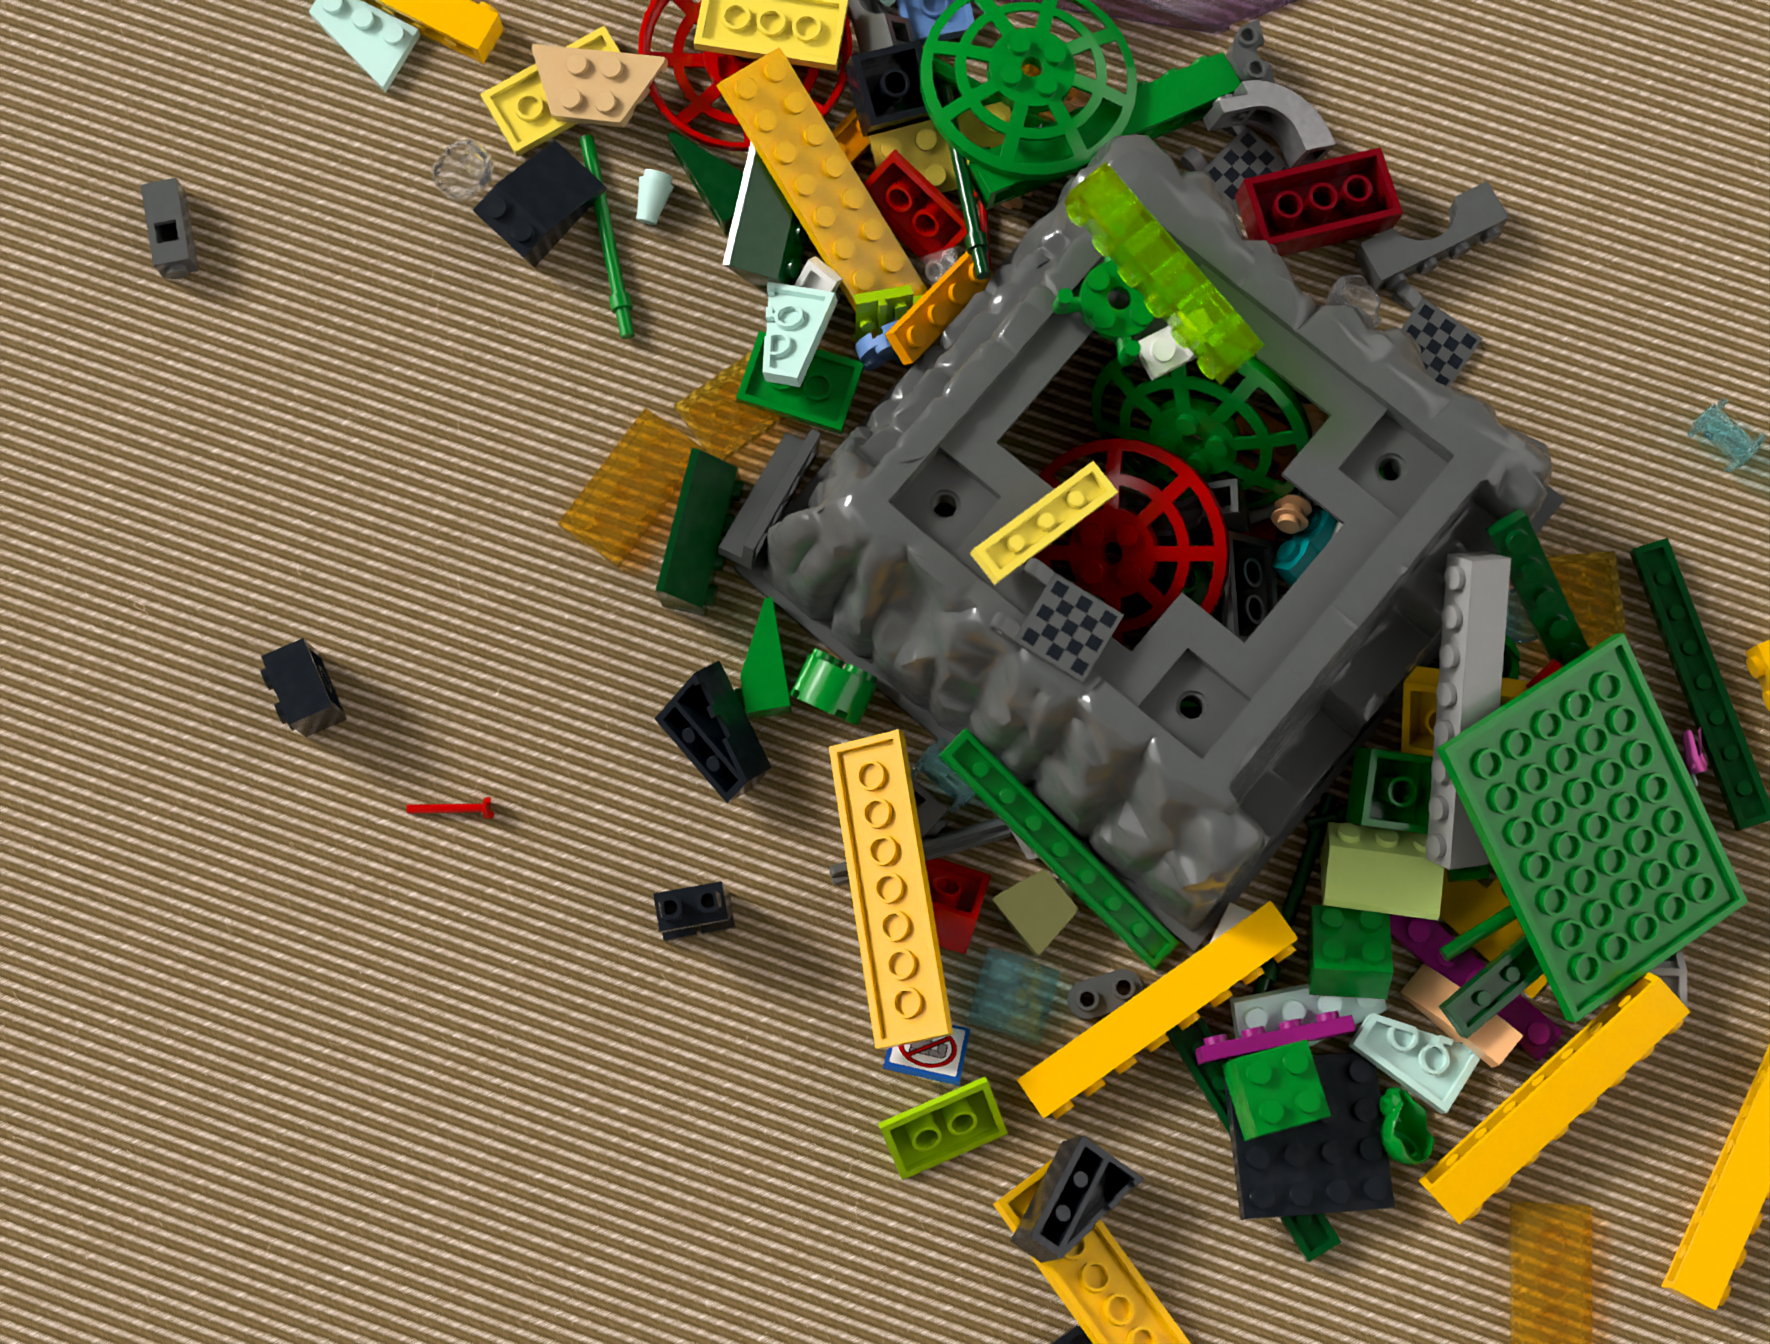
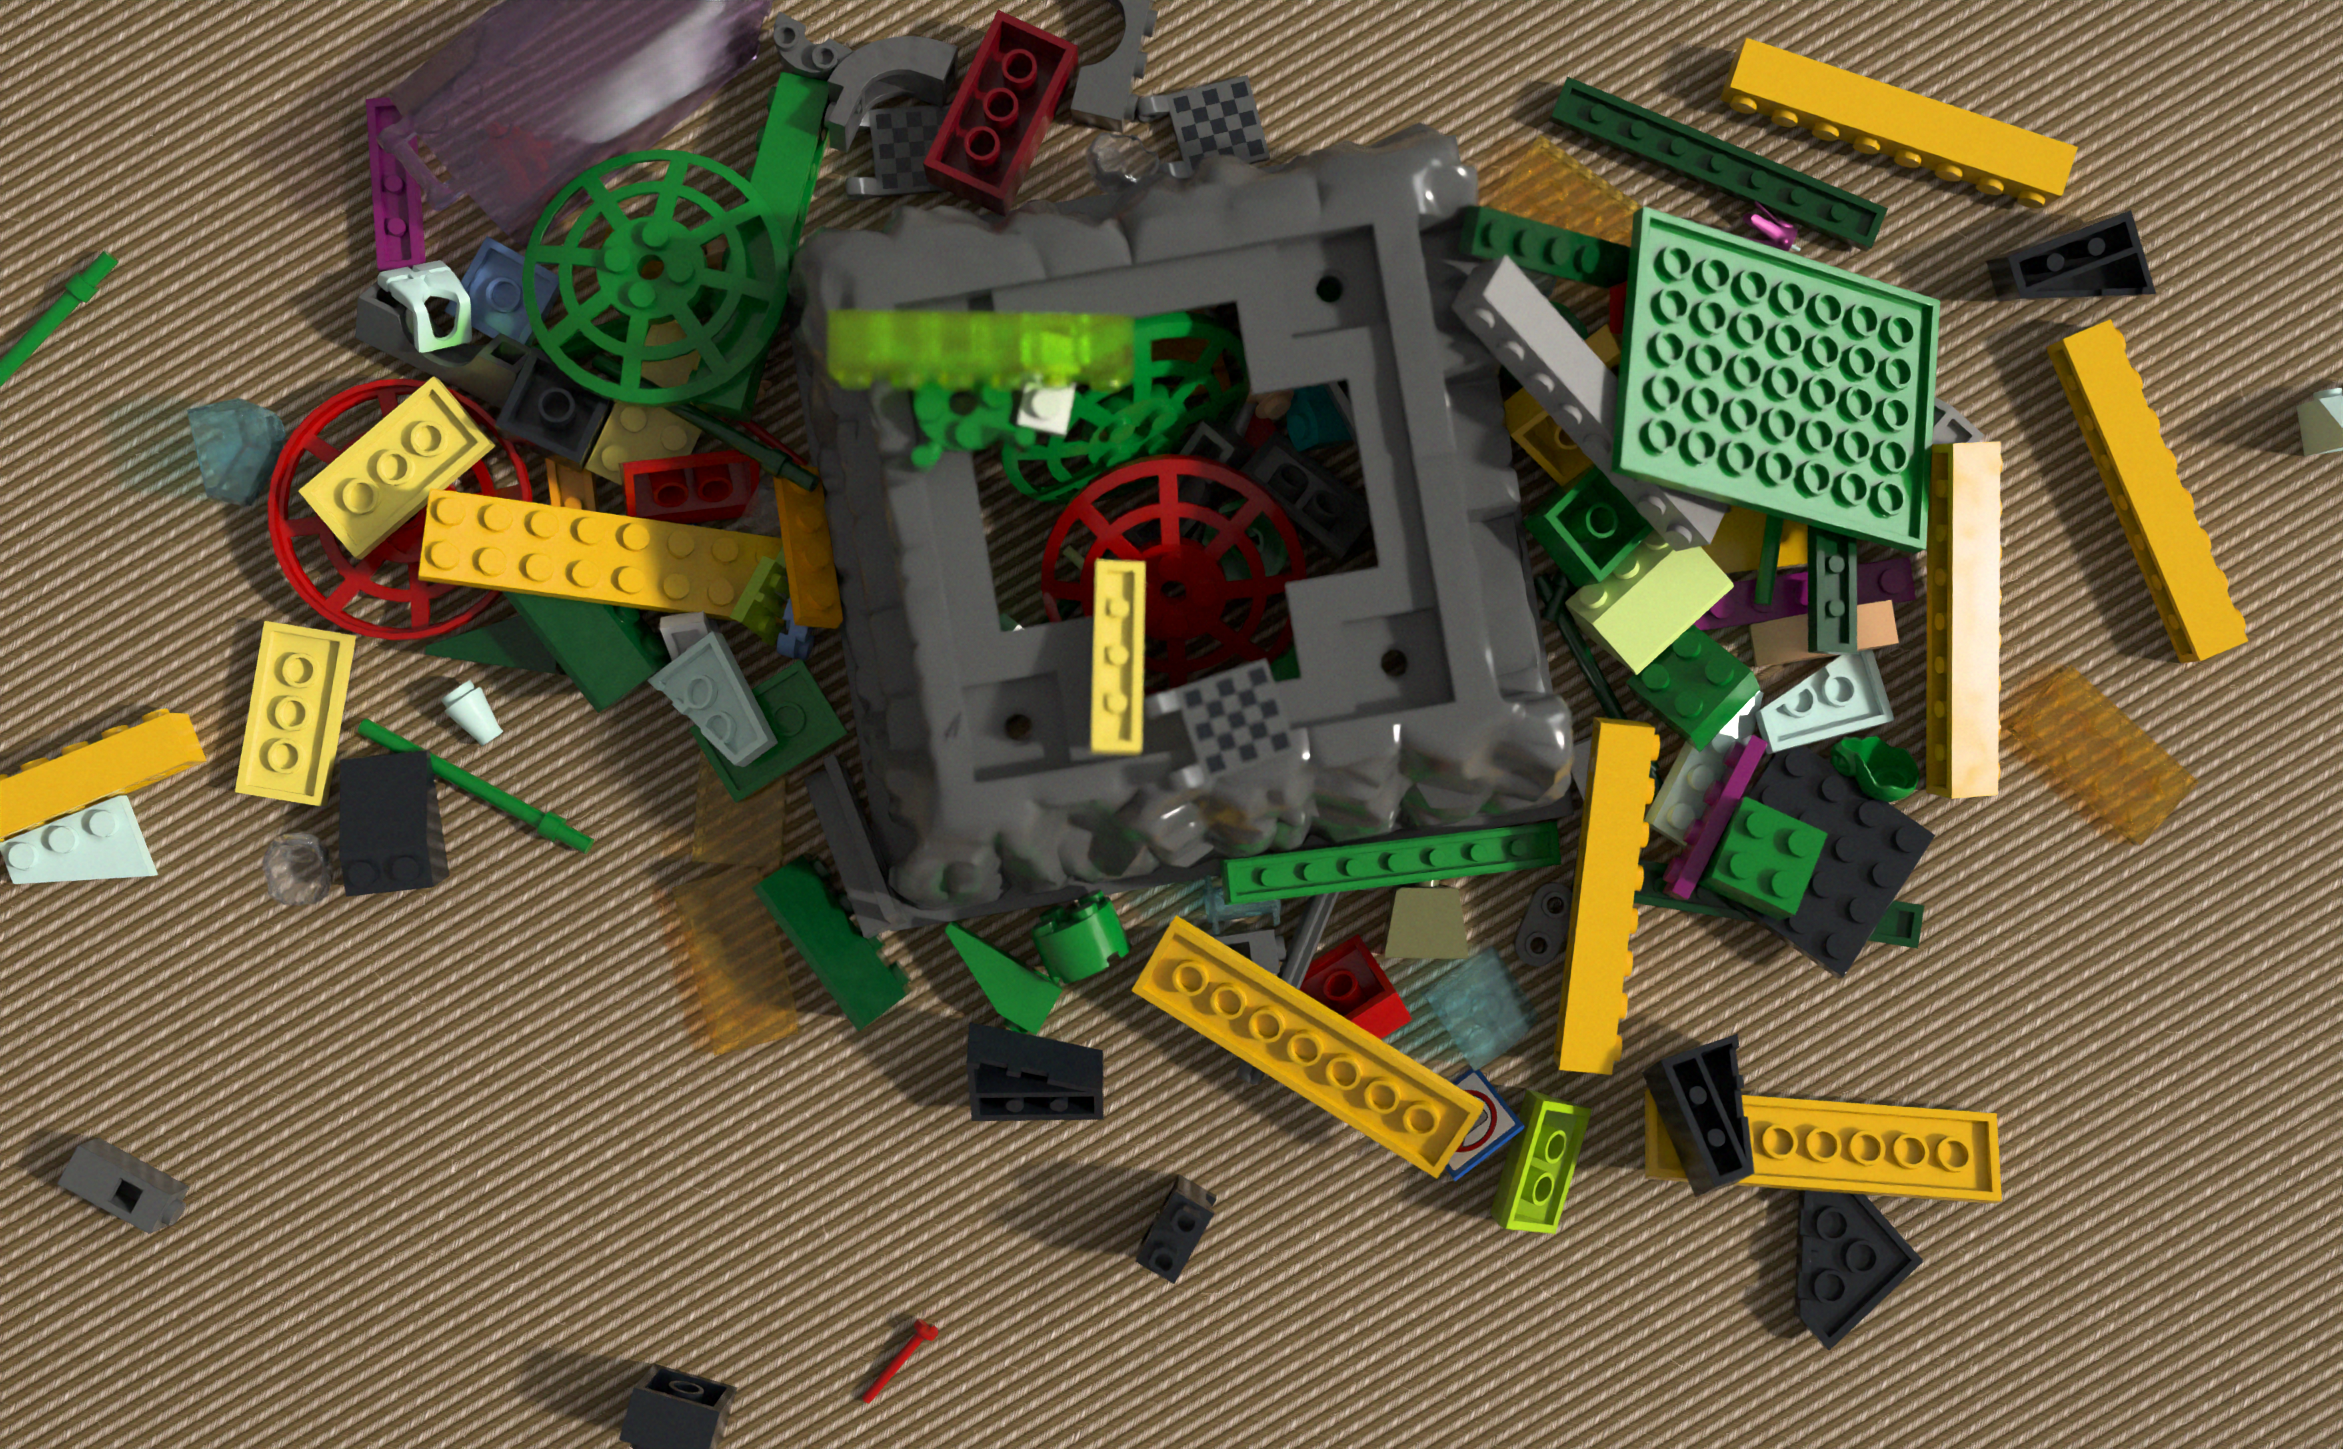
camera: 50 degrees left, 10 degrees up
(595, 83) = (316, 679): tan wing -> none

